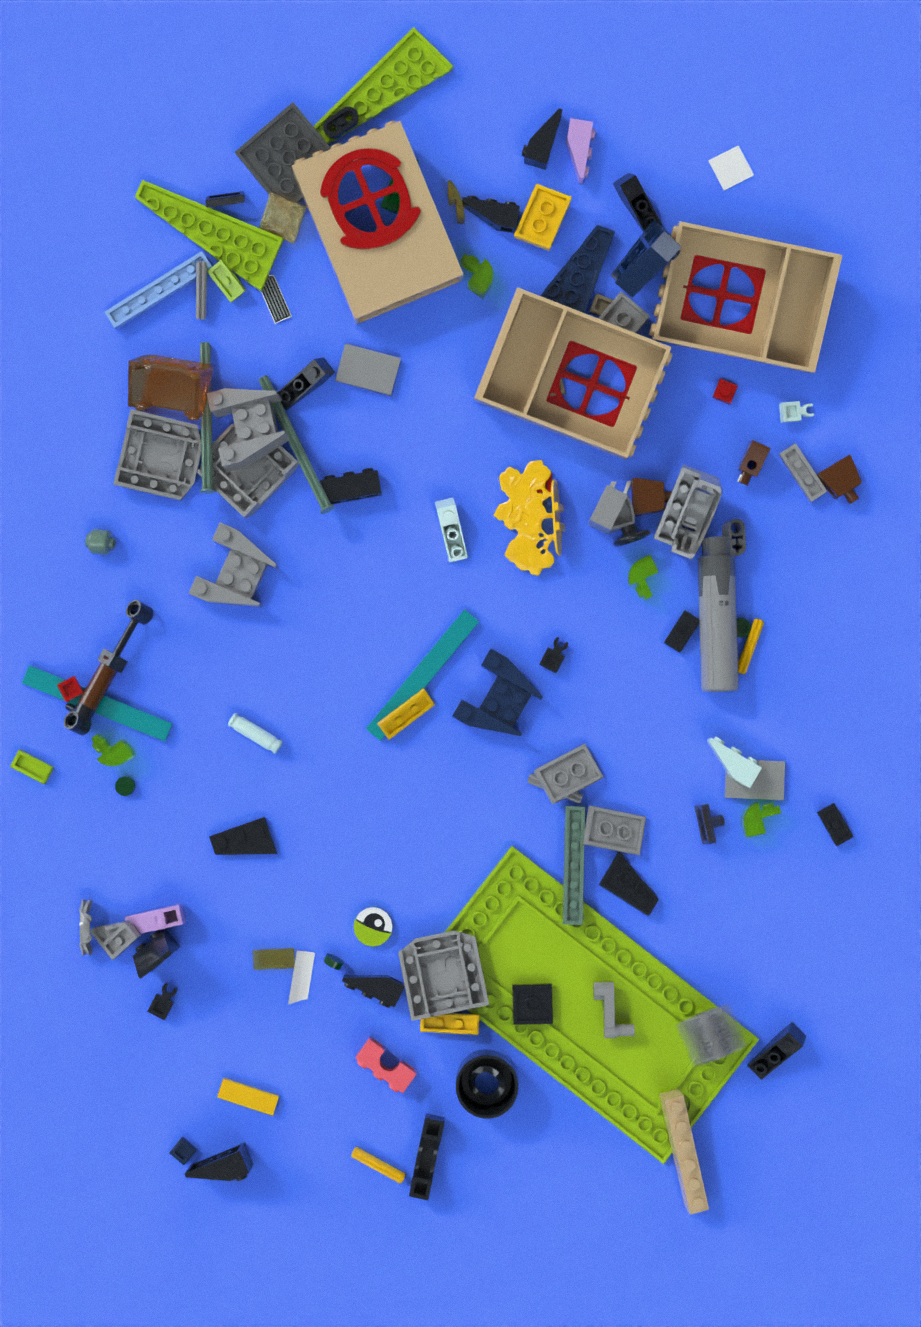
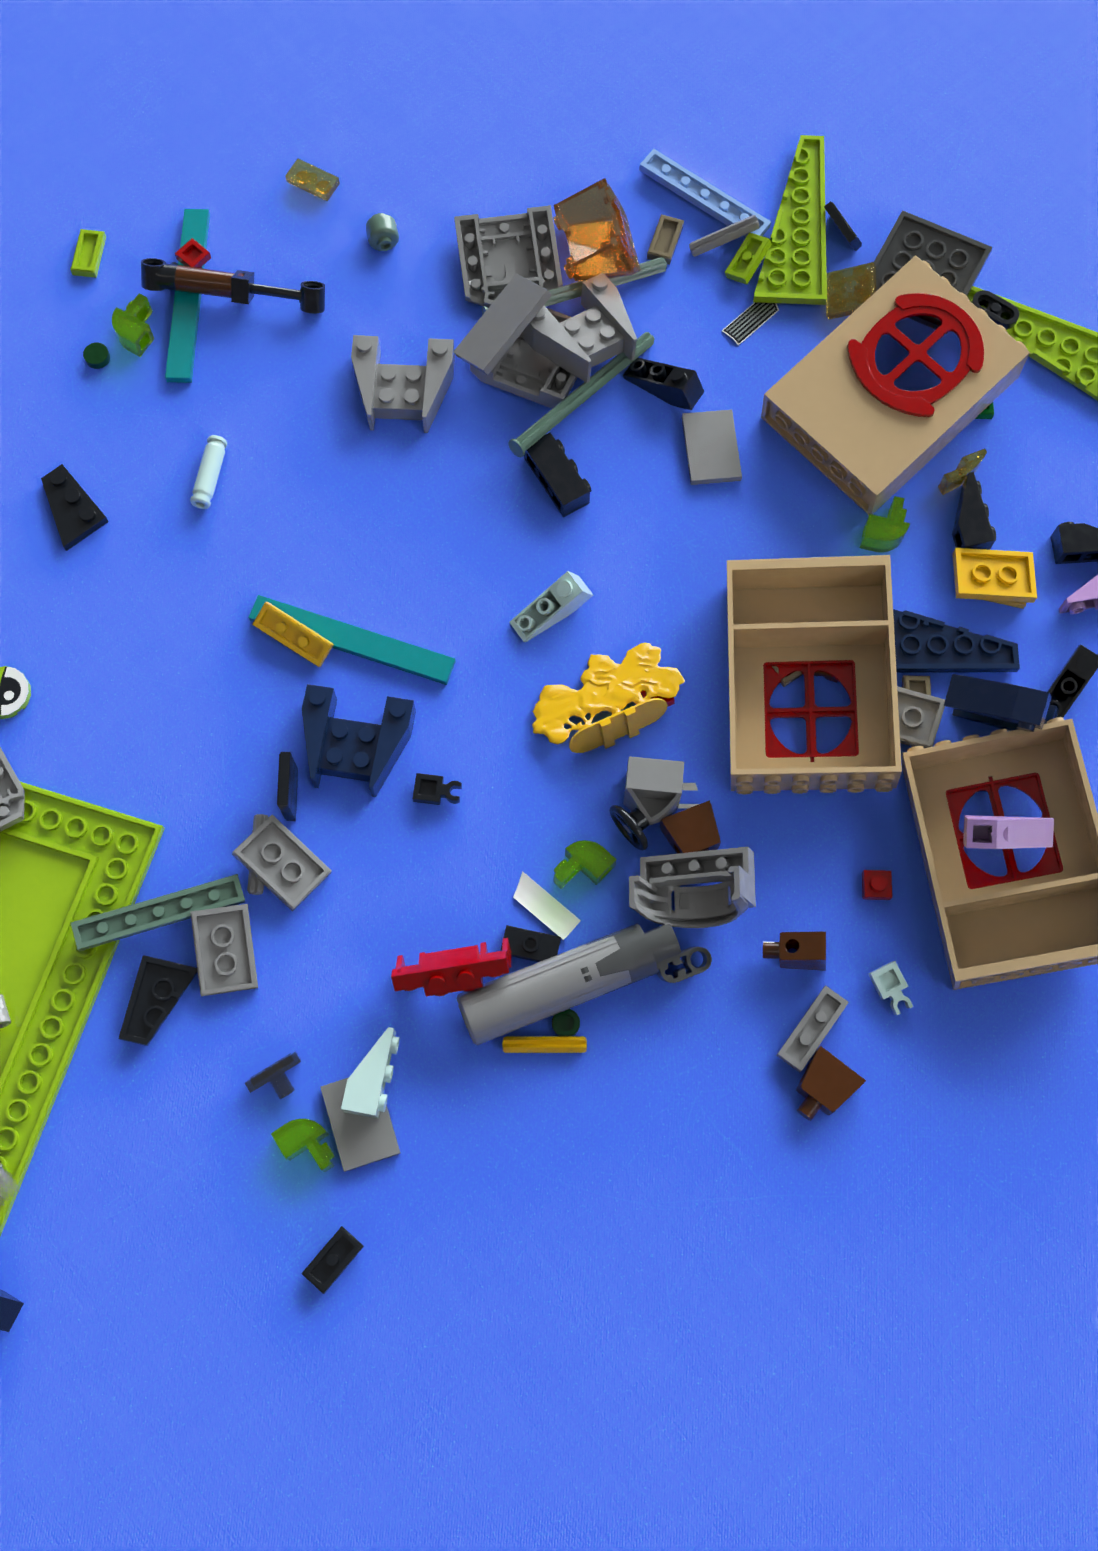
camera: 65 degrees right, 15 degrees down
(31, 578) = (312, 179): none -> clear yellow plate
(183, 333) = (665, 238): none -> dark tan tile
(226, 483) = (502, 323): none -> light grey tile
(520, 753) = (287, 786): none -> black tile
(659, 612) = (545, 907): none -> white sticker
(687, 687) = (452, 969): none -> red bracket
(739, 299) = (1007, 832): none -> lavender slope

